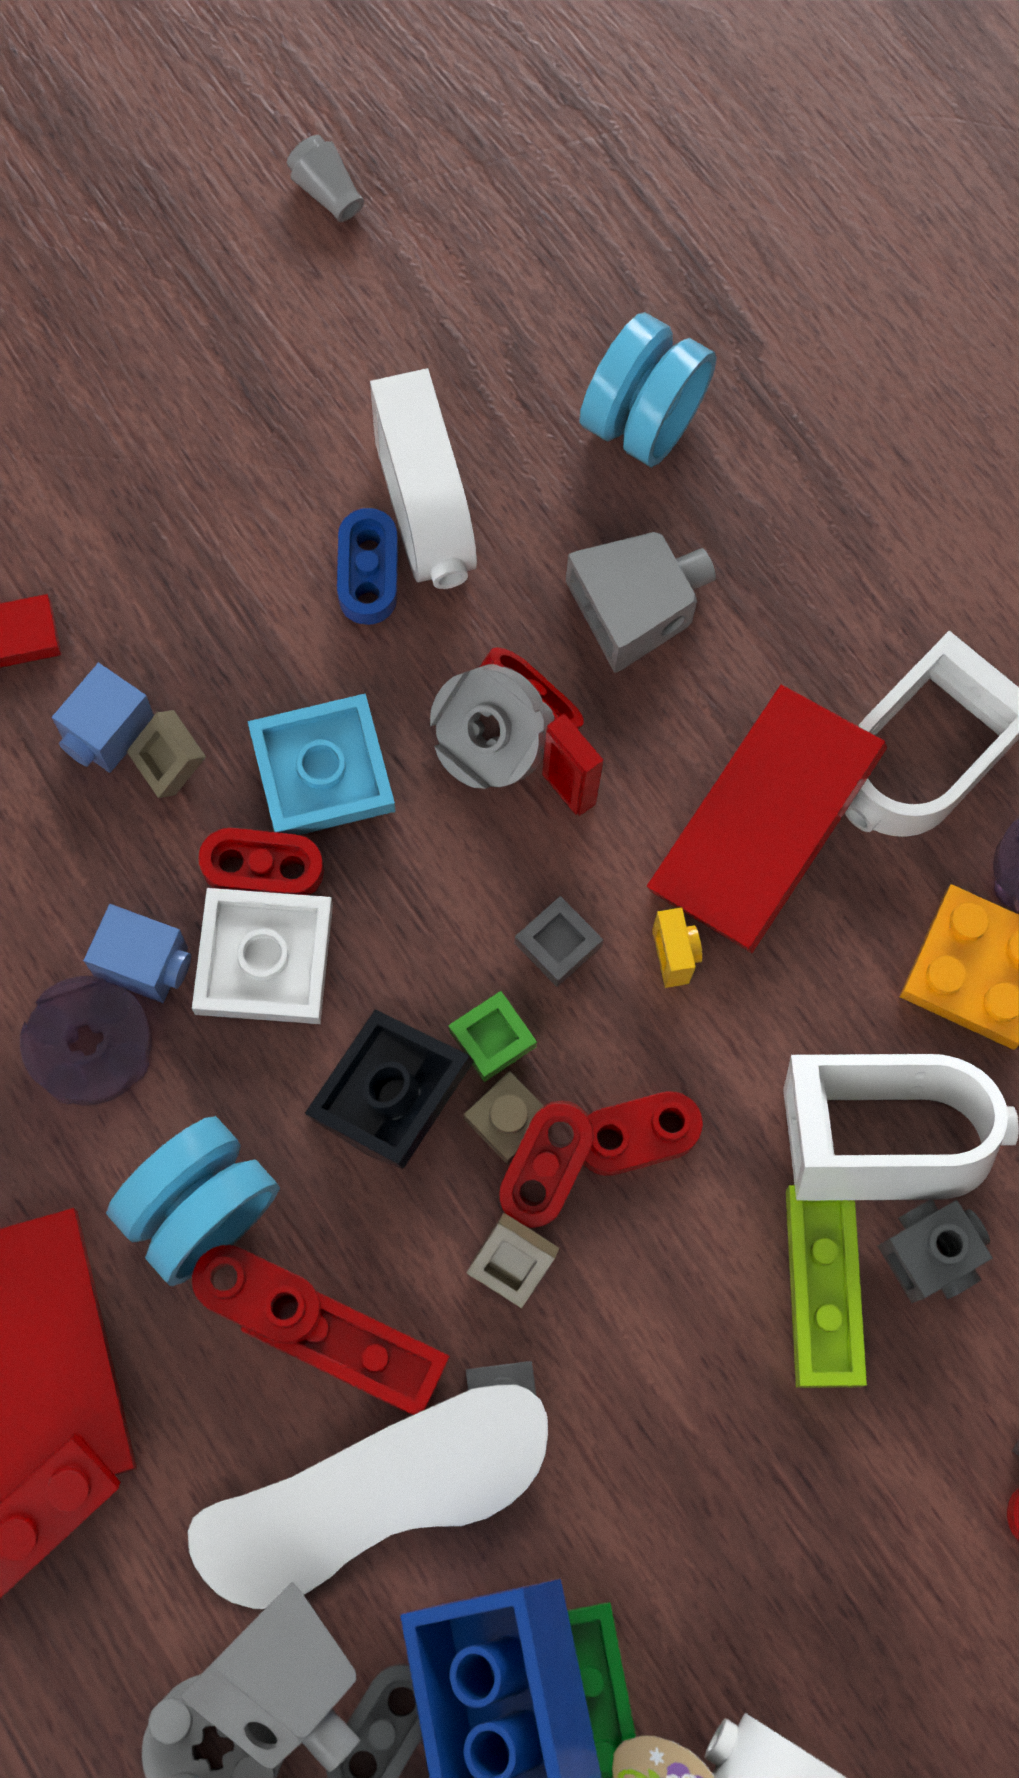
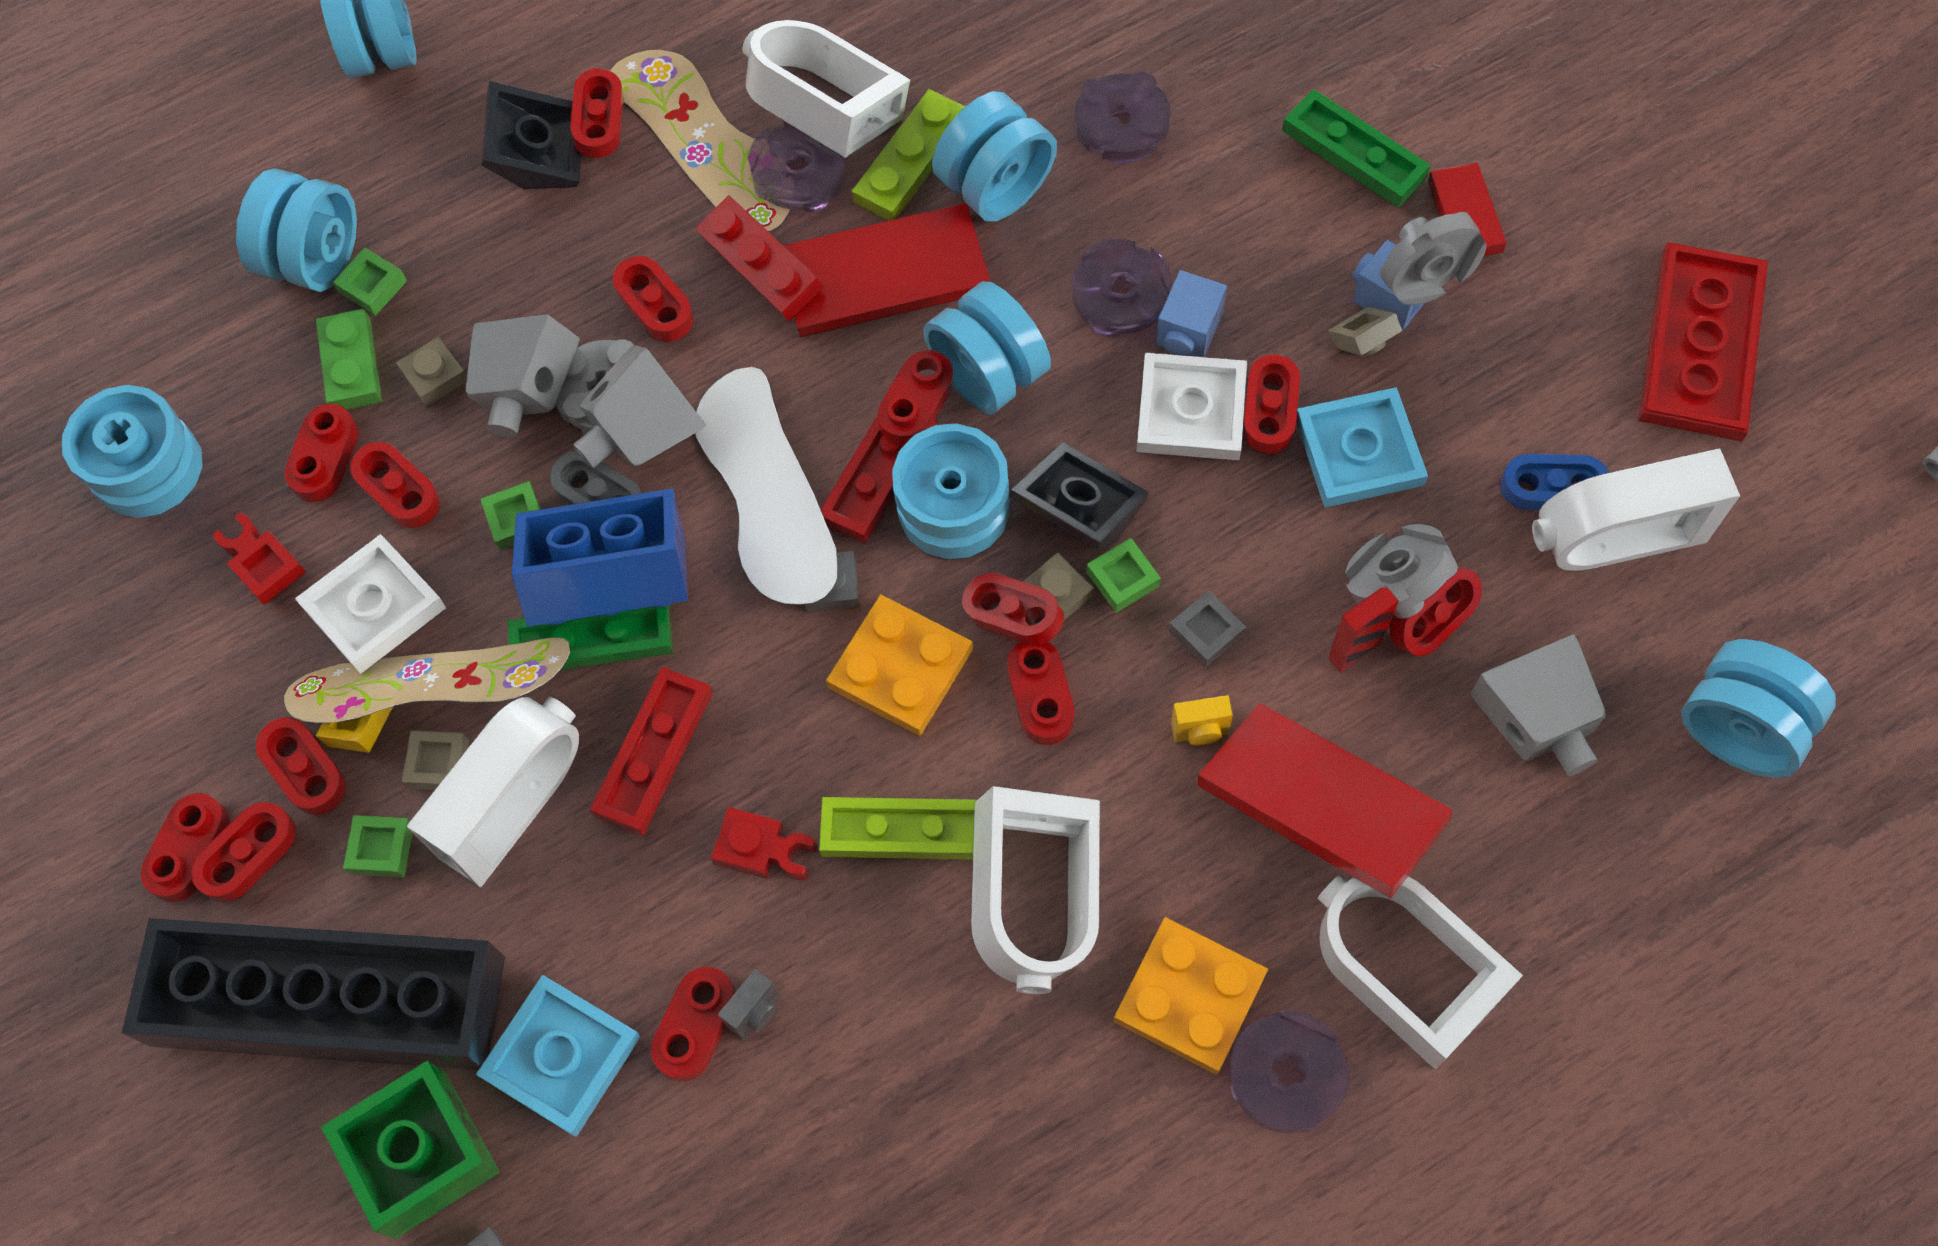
camera: 100 degrees right, 5 degrees down
(77, 1685) = (655, 301): none -> red plate
(106, 655) = (1432, 256): none -> light grey plate
(182, 406) = (1704, 341): none -> red tile
(353, 1232) = (951, 491): none -> medium azure wheel
(512, 1260) = (936, 584): dark tan plate -> none
(612, 1305) = (900, 665): none -> light orange plate
(749, 1614) = (651, 751): none -> red plate
(851, 1473) = (754, 843): none -> red plate
(919, 1263) = (927, 915): dark grey brick -> none

